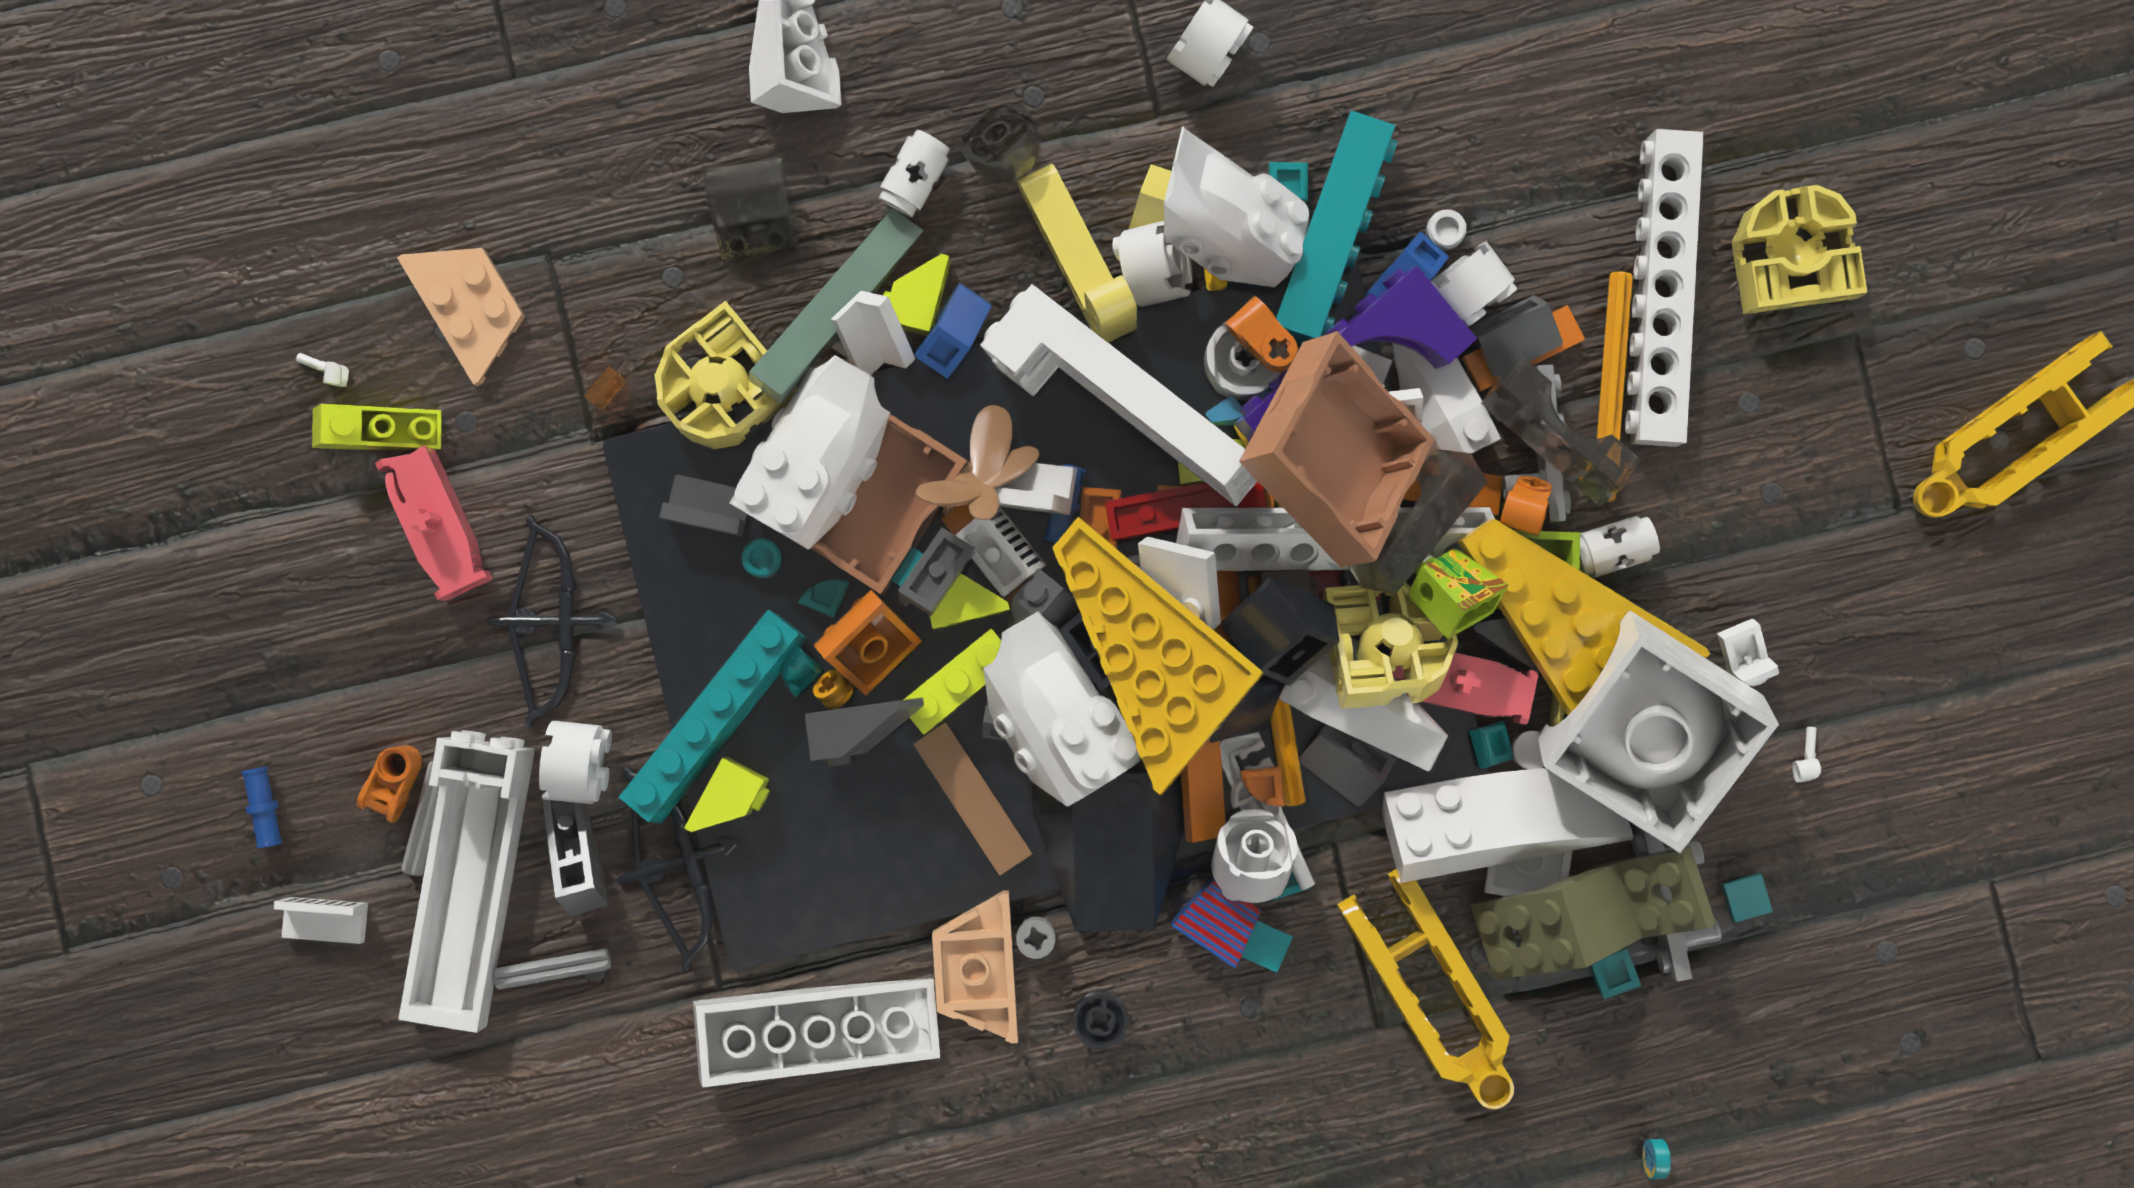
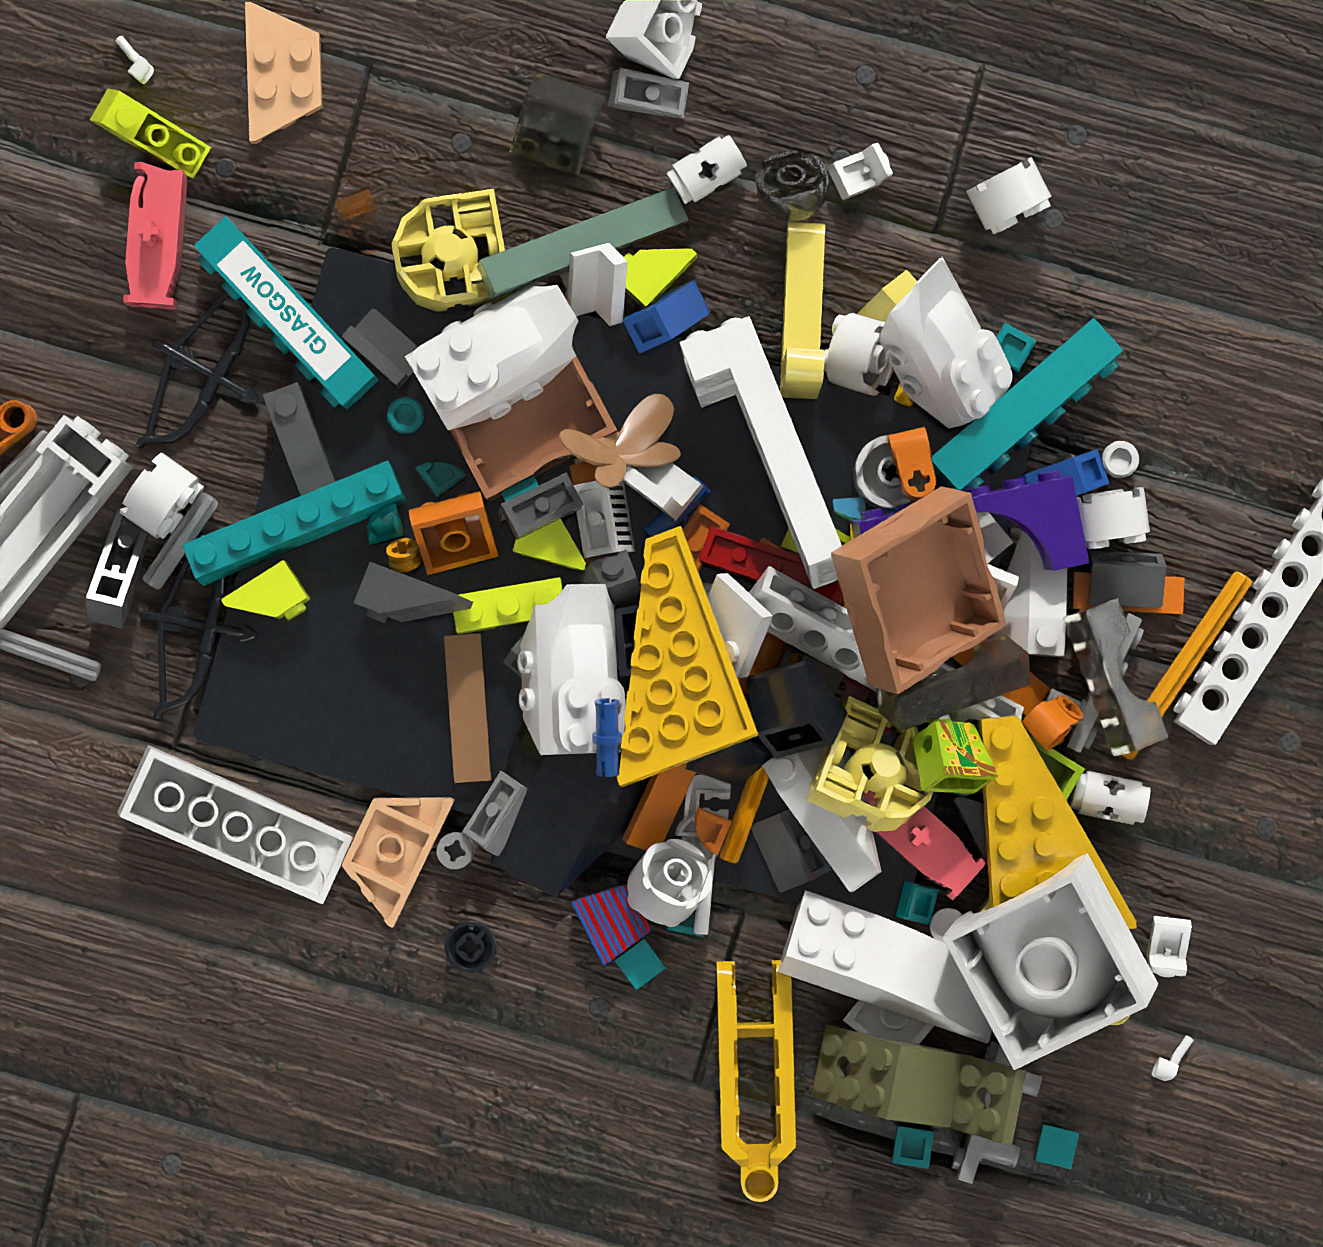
camera: 30 degrees right, 0 degrees up
(596, 525) = (286, 313): none -> brick
(616, 781) = (185, 532): none -> light grey axle
(673, 634) = (299, 438): none -> dark grey slope
(820, 134) = (648, 93): none -> light grey slope
(1055, 883) = (496, 814): none -> light grey slope
(1058, 96) = (860, 171): none -> white bracket
(1122, 755) = (607, 737): none -> blue pin

